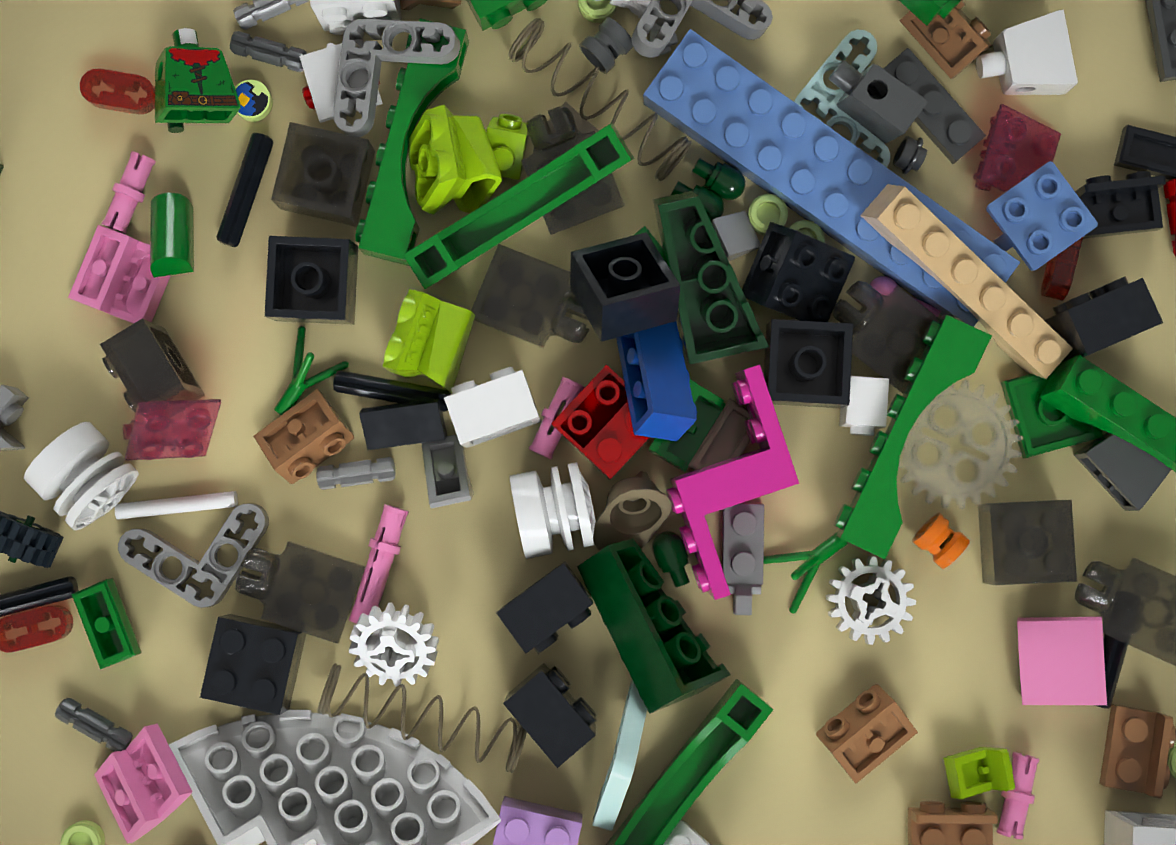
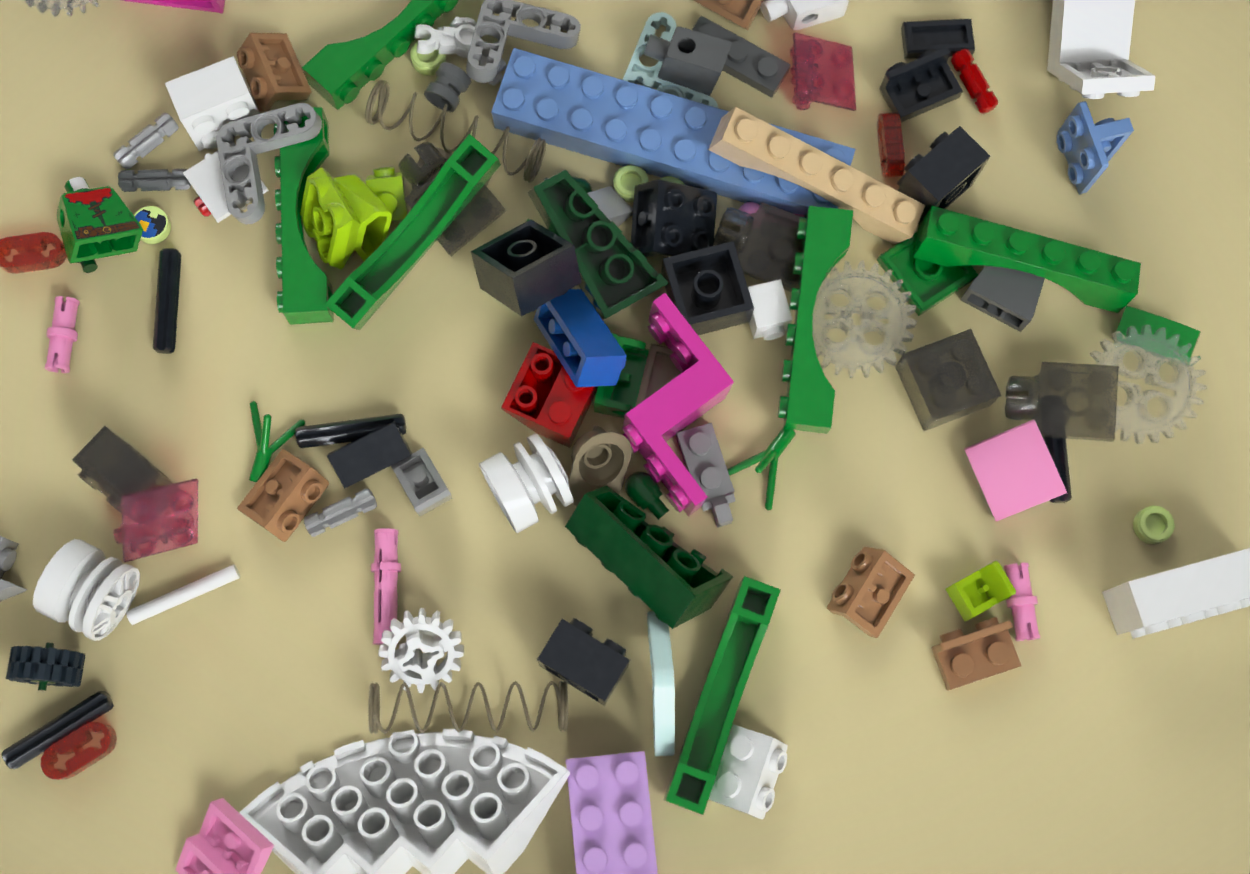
camera: 25 degrees left, 10 degrees down
(93, 725) = (161, 821): dark grey axle -> none
(106, 623) = (148, 721): green brick -> none
(118, 277) = (75, 406): bright pink slope -> none
(171, 235) = (111, 356): green brick -> none
(208, 567) = (228, 640): light grey beam -> none
(253, 664) = (296, 711): black brick -> none
(302, 588) = (322, 629): clear smoke plate -> none
(311, 280) = (249, 354): black brick -> none
(323, 174) = (233, 263): clear smoke brick -> none
(429, 339) = (369, 371): lime piece -> none
(492, 407) = (445, 411): white brick -> none
(528, 299) = (449, 314): clear smoke plate -> none
(544, 443) = (502, 430): bright pink pin -> none
(546, 608) = (549, 568): black brick -> none
(721, 179) = (581, 165): dark green cylinder -> none
(879, 583) = (847, 473): white gear -> none
(910, 155) = (733, 97): dark grey plate -> none
(941, 541) = (866, 400): orange wheel -> none
(1040, 217) = (859, 110): medium blue bracket -> none
(1137, 750) = (1109, 528): medium nougat bracket -> none

